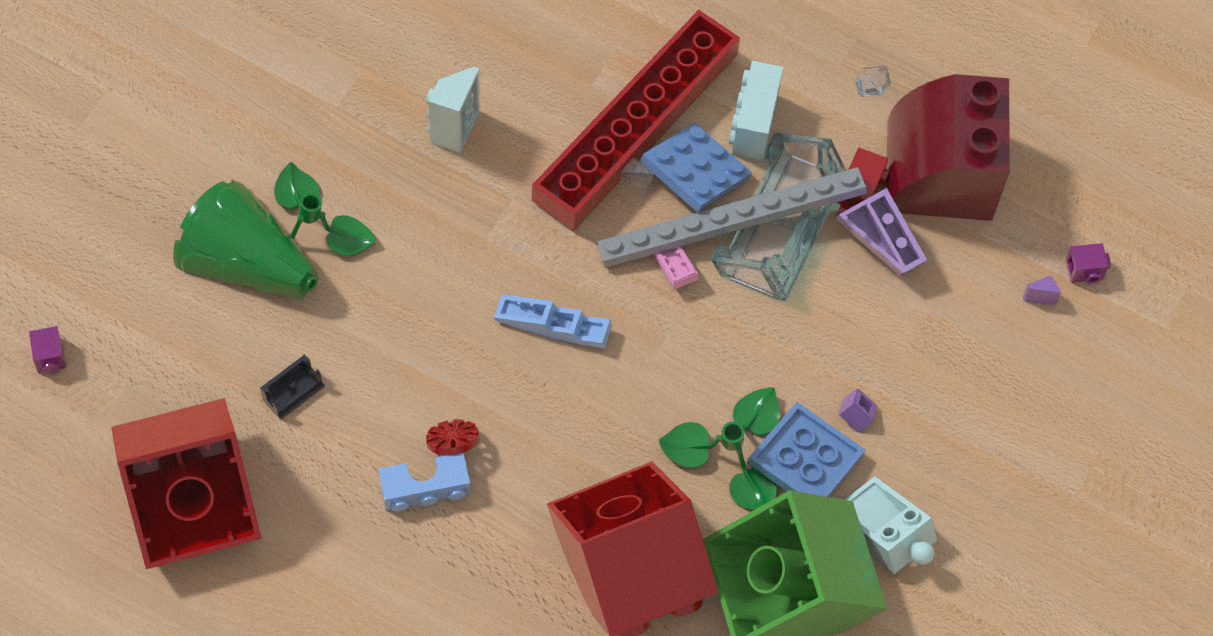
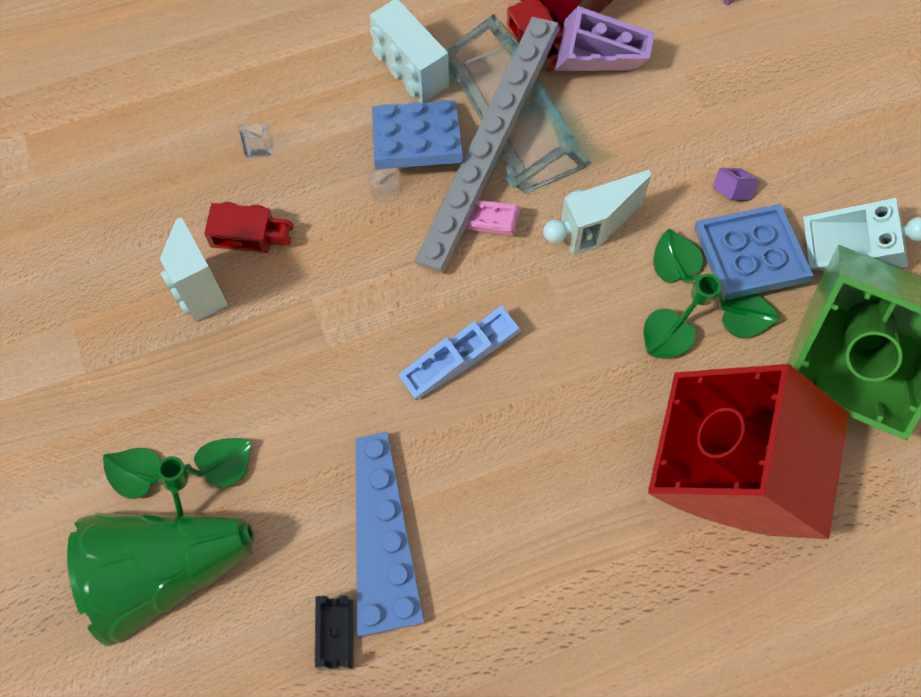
camera: 45 degrees left, 5 degrees up
(366, 383) = (385, 568): none -> medium blue wing
(403, 491) = (519, 612): light blue arch -> none
(452, 437) = (507, 525): red wheel -> none
(523, 116) = (245, 228): none -> red brick
(598, 70) = (256, 140): none -> clear slope
(635, 119) = (332, 149): red brick -> none
(738, 330) = (597, 213): none -> light aqua slope

